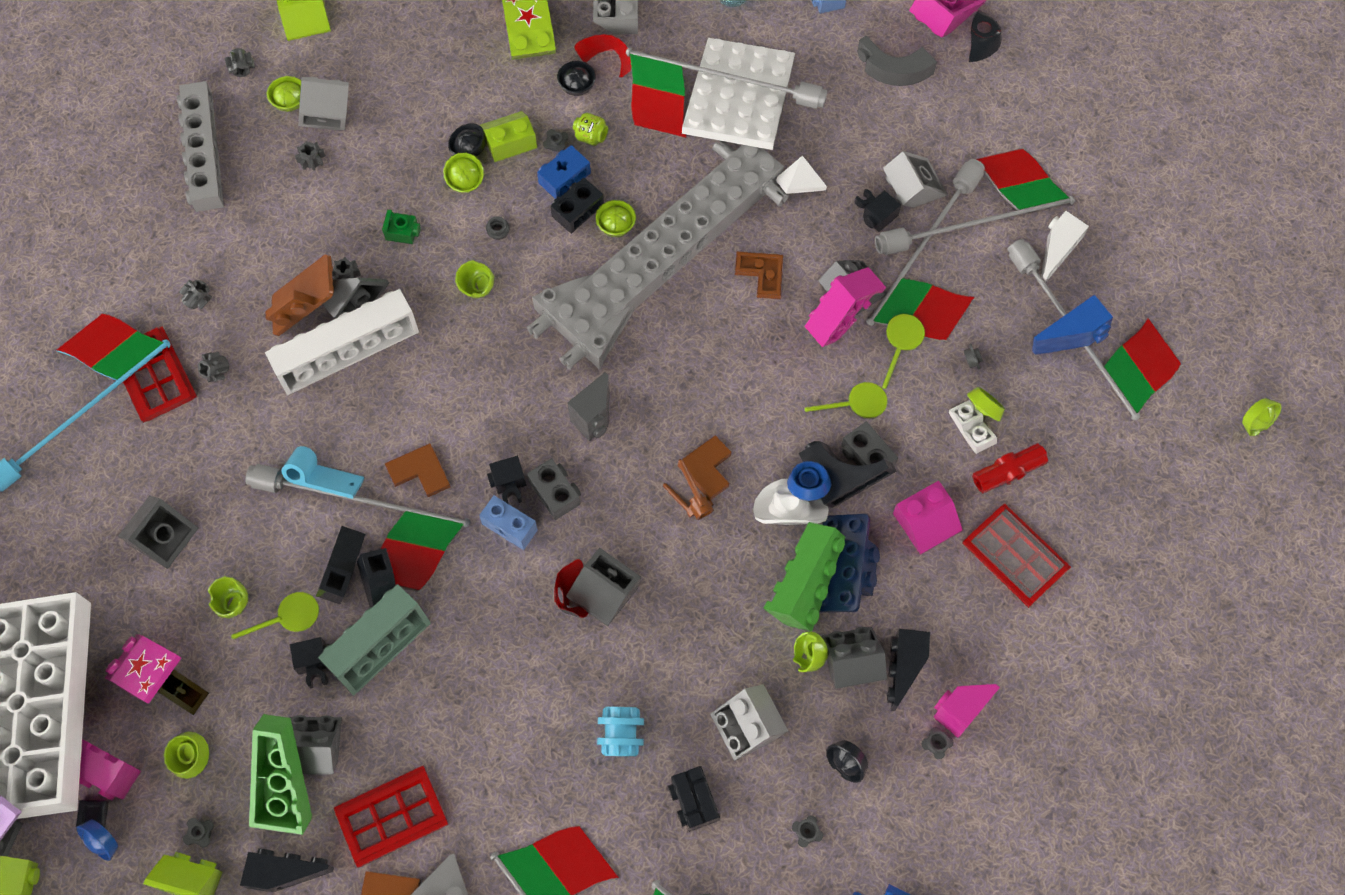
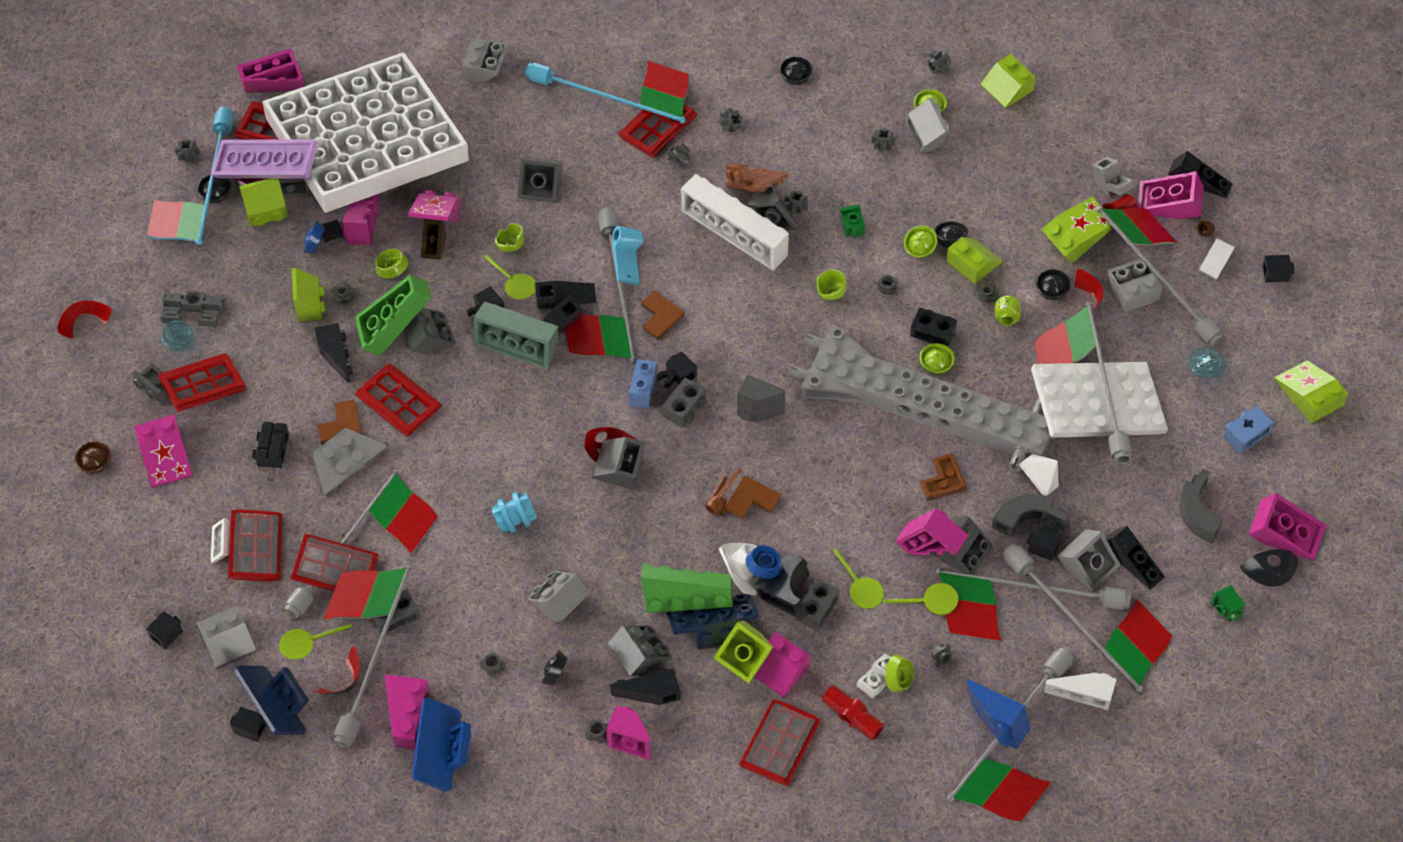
camera: 70 degrees right, 10 degrees down
(163, 203) = (795, 70): none -> black hat
(200, 147) = (854, 70): light grey brick -> none
(563, 171) = (959, 307): blue brick -> none
(694, 799) = (485, 579): black brick -> none
(814, 647) = (630, 616): lime hair -> none
(835, 225) = (1028, 507): none -> dark grey arch
(907, 545) = (744, 651): none -> lime slope
(926, 140) = (1134, 557): none -> black slope
(1012, 85) = (1228, 603): none -> green brick

